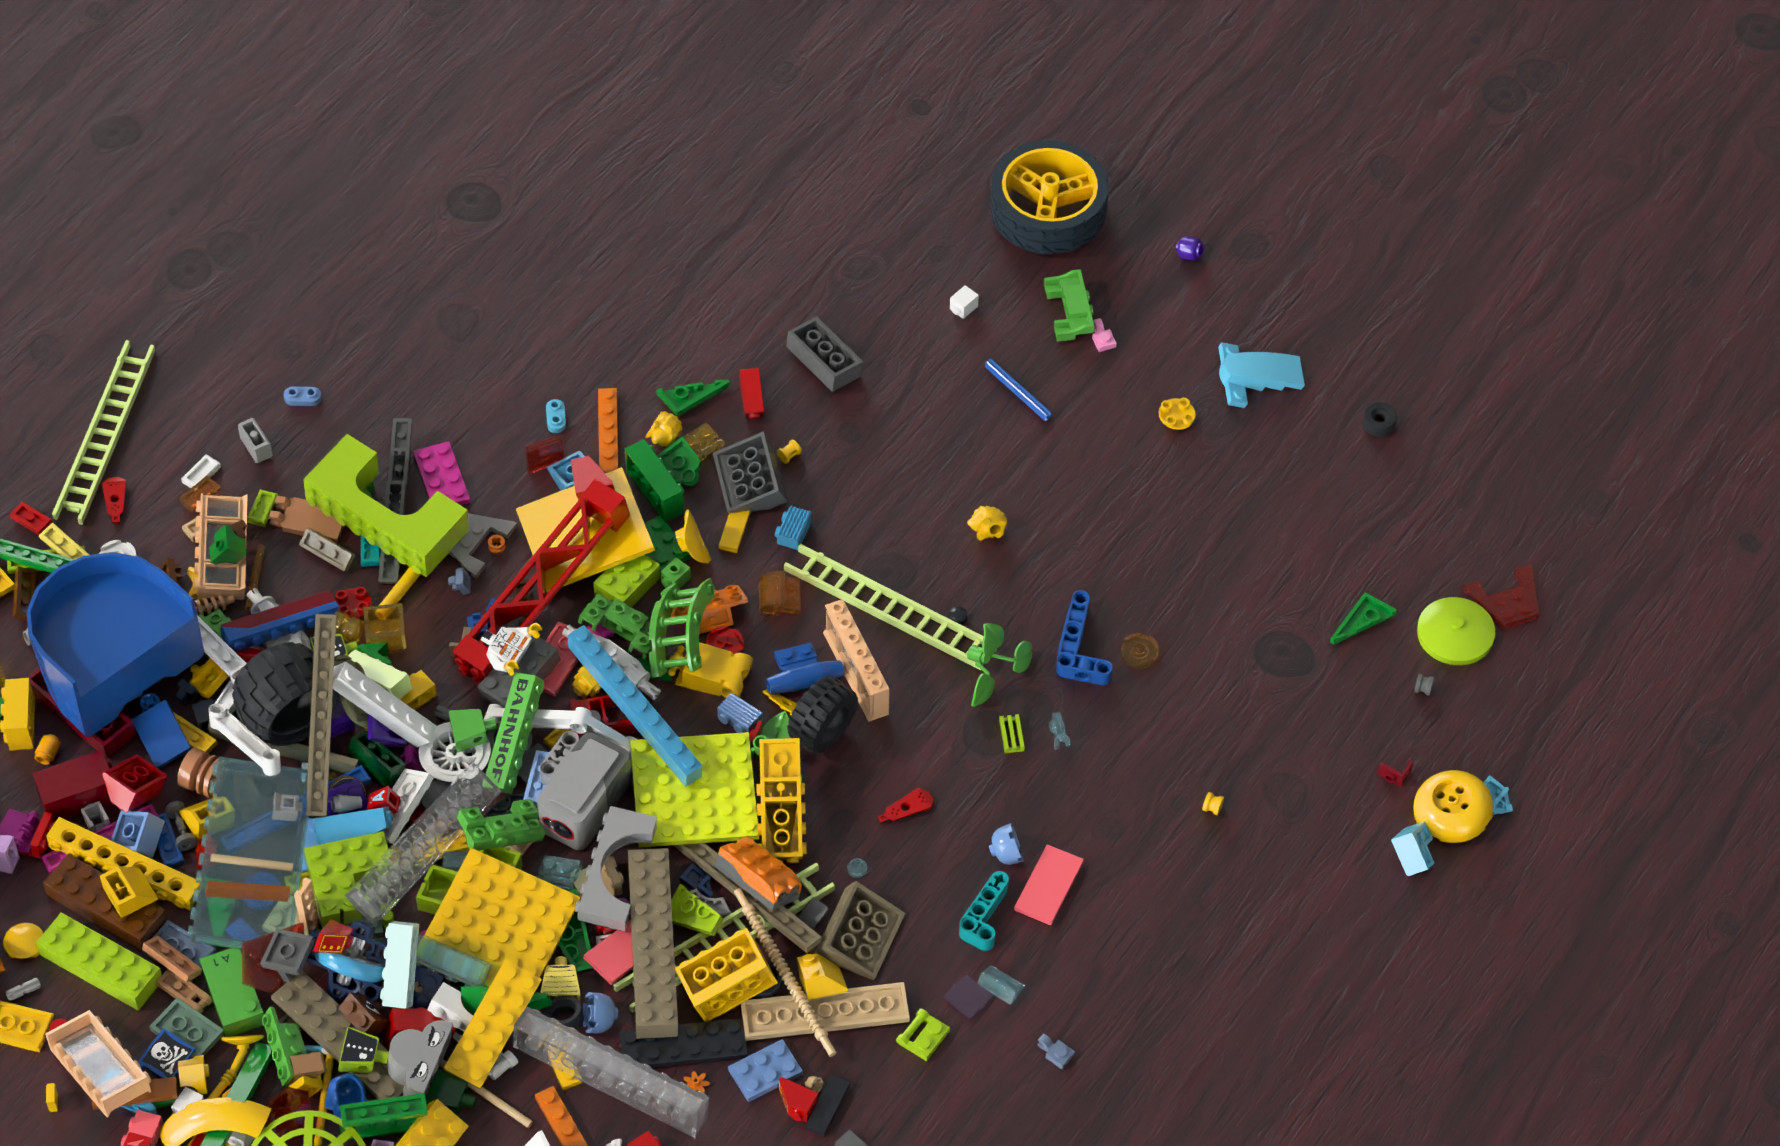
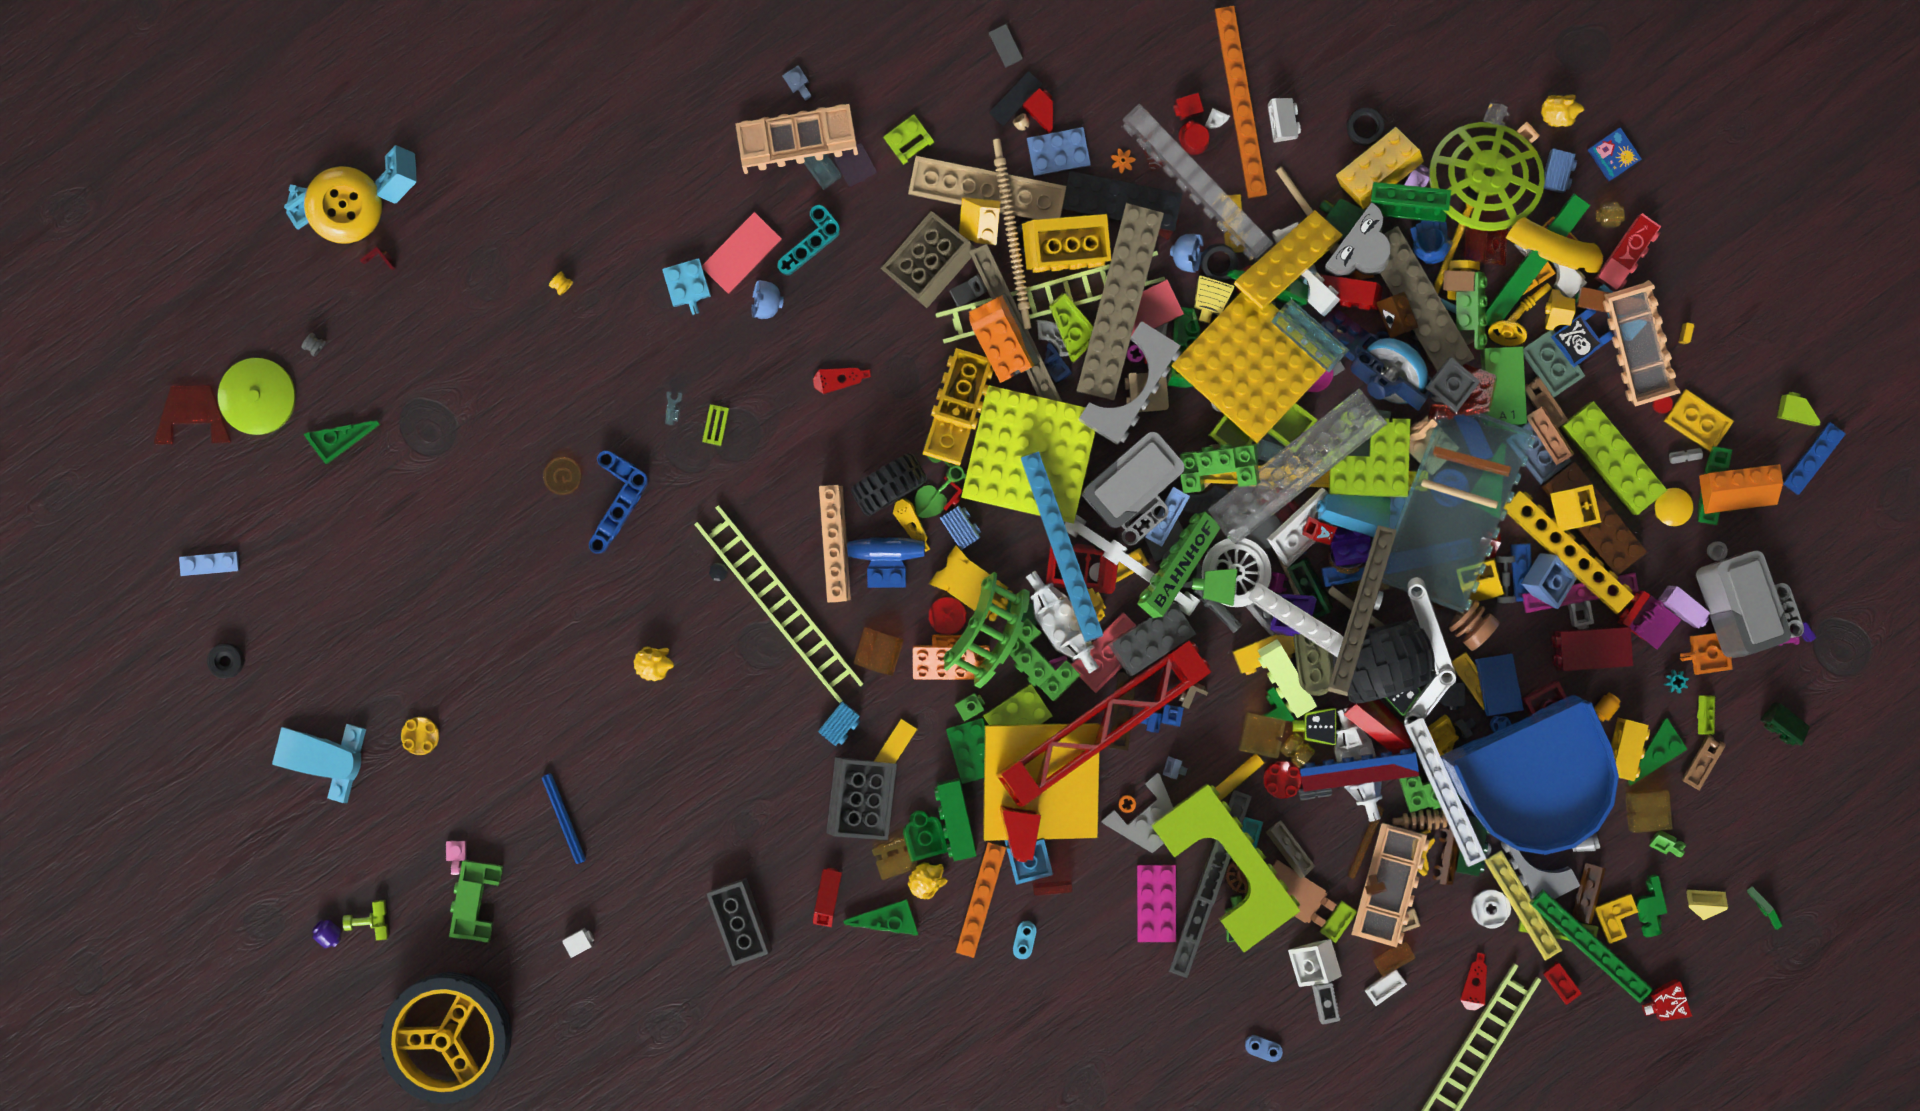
camera: 160 degrees left, 35 degrees up
(133, 782) = (1541, 630): red slope -> none
(227, 547) = (1389, 868): green brick -> none
(273, 469) = (1315, 963): none -> white slope
(286, 813) = (1420, 545): light grey window -> none
(334, 938) = (1410, 376): red slope -> none
(345, 803) = (1355, 538): light grey cone -> none
(360, 1052) = (1411, 273): torso -> none
(400, 964) = (1356, 337): light aqua brick -> none
(509, 646) = (1160, 649): torso -> none
(559, 871) = (1178, 414): clear light blue plate -> none
(628, 1122) = (1193, 138): none -> red hat
(691, 541) = (943, 731): yellow hat -> none
(789, 451) = (813, 817): yellow bush -> none
(857, 868) = (908, 328): clear light blue plate -> none
(993, 639) = (707, 501): bright green plant -> none
(1035, 994) = (796, 136): none -> light nougat window
(1090, 838) = (687, 284): none -> medium azure plate
(1152, 270) = (375, 920): none -> lime bar
(1432, 489) = (209, 563): none -> light blue plate

